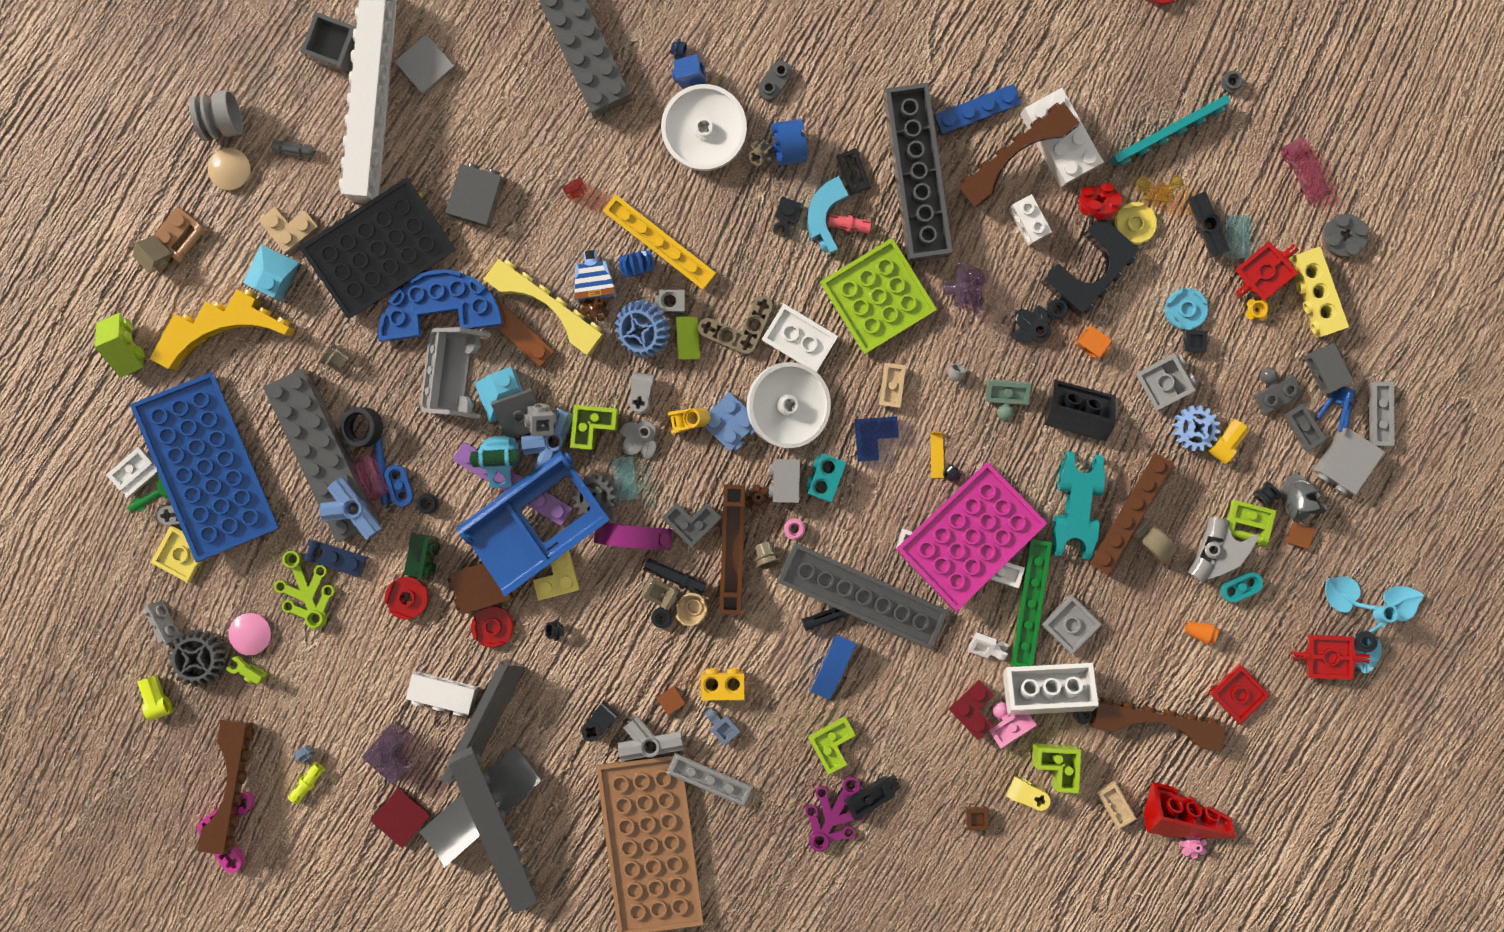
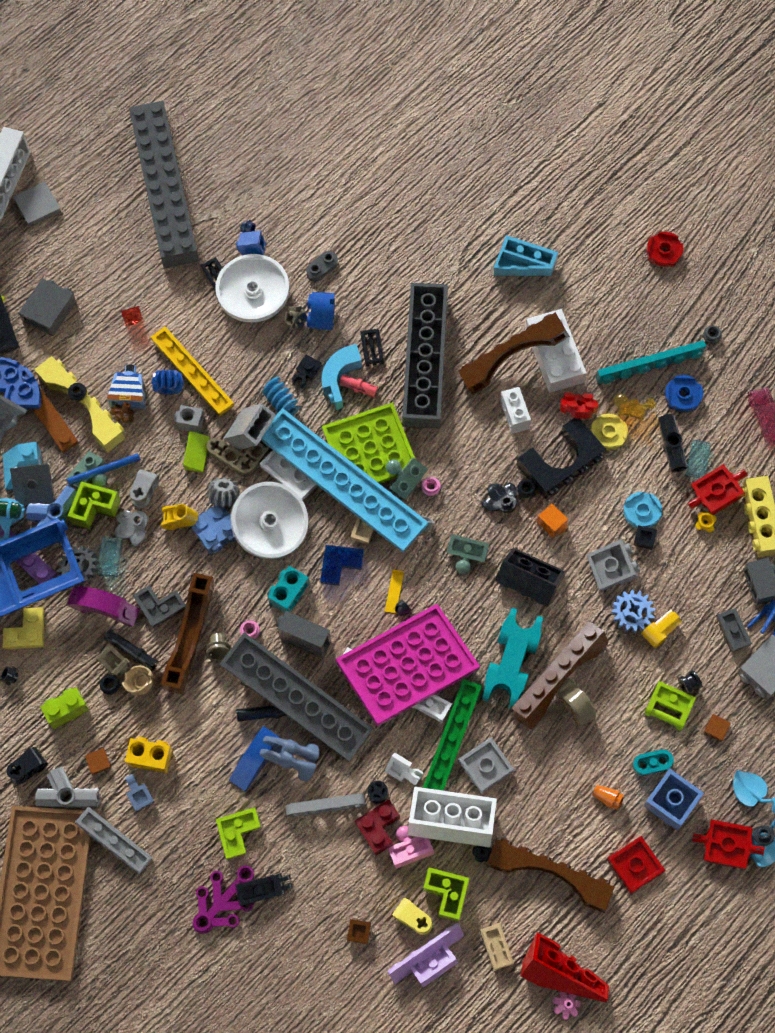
camera: 10 degrees right, 20 degrees down
(540, 305) = (77, 396): none -> black plate
(540, 420) = (45, 495): light grey brick -> none
(573, 384) = (89, 462): none -> sand green plate
(591, 381) = (103, 469): none -> blue bar
(622, 654) = (64, 708): none -> lime brick
(642, 341) = (162, 437): medium blue gear -> none
(644, 103) = (209, 263): none -> black tile
(730, 382) = (223, 492): none -> light grey gear
(743, 302) = (249, 426): none -> light grey brick
(754, 501) = (223, 598): reddish brown plant -> none
(766, 256) = (279, 397): none -> dark azure piece
(785, 480) = (251, 584): light grey brick -> none
(855, 527) = (304, 634): none -> dark grey brick
(857, 343) = (344, 481): none -> medium azure plate
(864, 658) = (283, 755): none -> sand blue piece
(916, 699) = (325, 805): none -> light grey beam
(926, 325) = (407, 477): none -> sand green plate
(959, 324) = (431, 481): none -> bright pink plate
(966, 678) = (377, 788): none -> black wheel
(967, 288) = (449, 453): plate -> none
(977, 109) = (488, 318): blue plate -> none
(1006, 29) = (524, 259): none -> medium azure wedge
(1055, 832) = (430, 959): none -> lavender bracket
(1219, 152) = (691, 387): none -> blue plate
(1229, 555) = (637, 724): light grey pin -> none
(1270, 624) = (673, 799): none -> medium blue brick
(1278, 392) = (713, 596): dark grey plate -> none
(1301, 498) = (721, 692): dark grey helmet -> none

